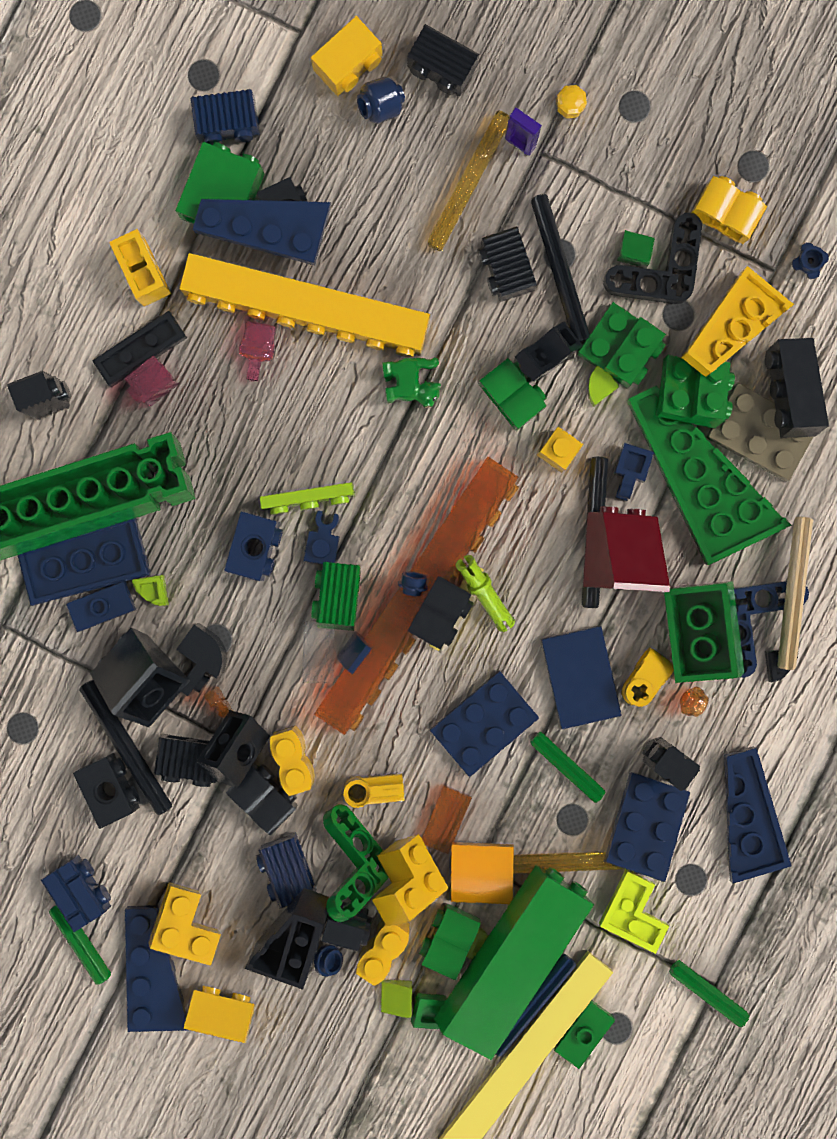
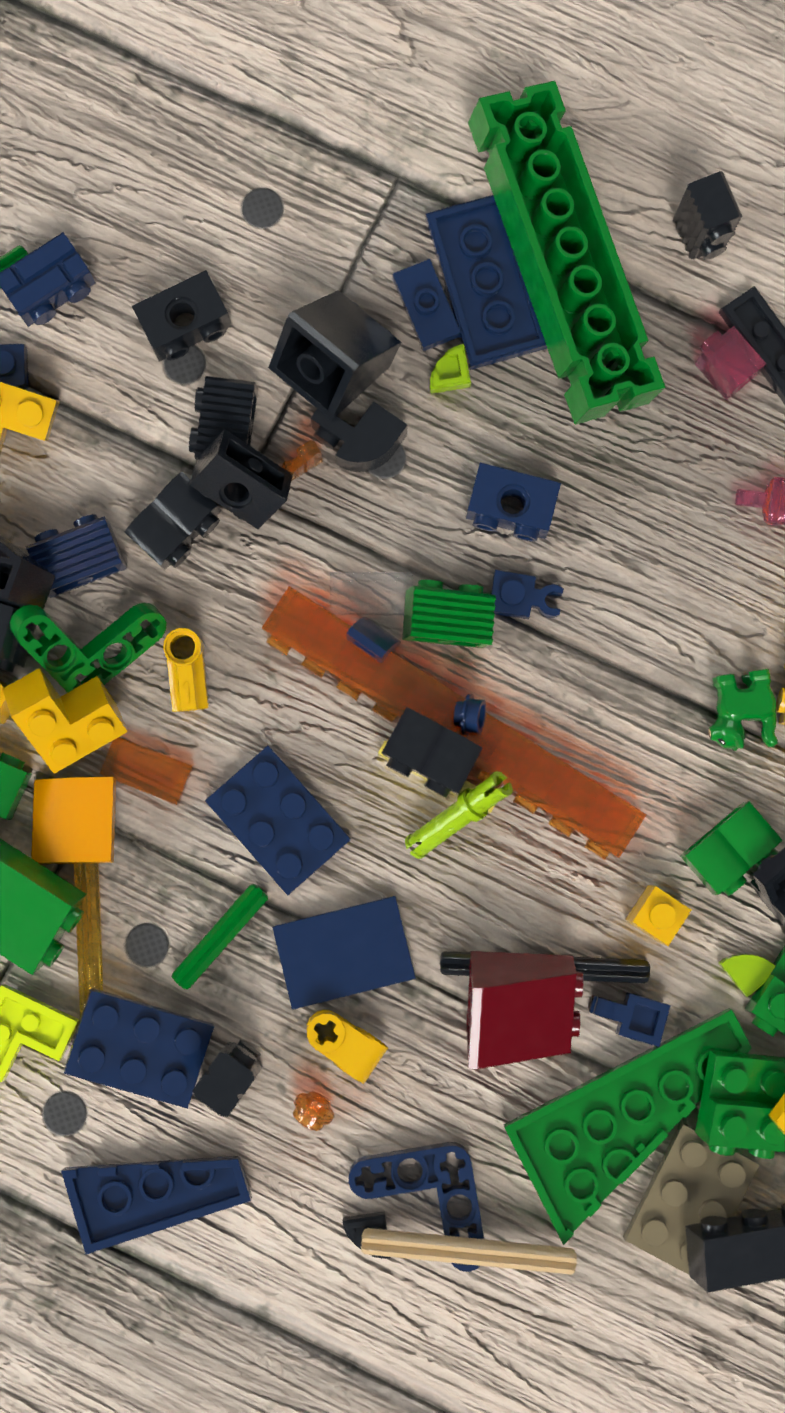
camera: 90 degrees right, 5 degrees down
(126, 748) = (234, 343): black axle -> none
(295, 769) = (215, 563): yellow brick -> none
(307, 498) = (580, 573): lime plate -> none
(704, 632) = (412, 1121): green brick -> none

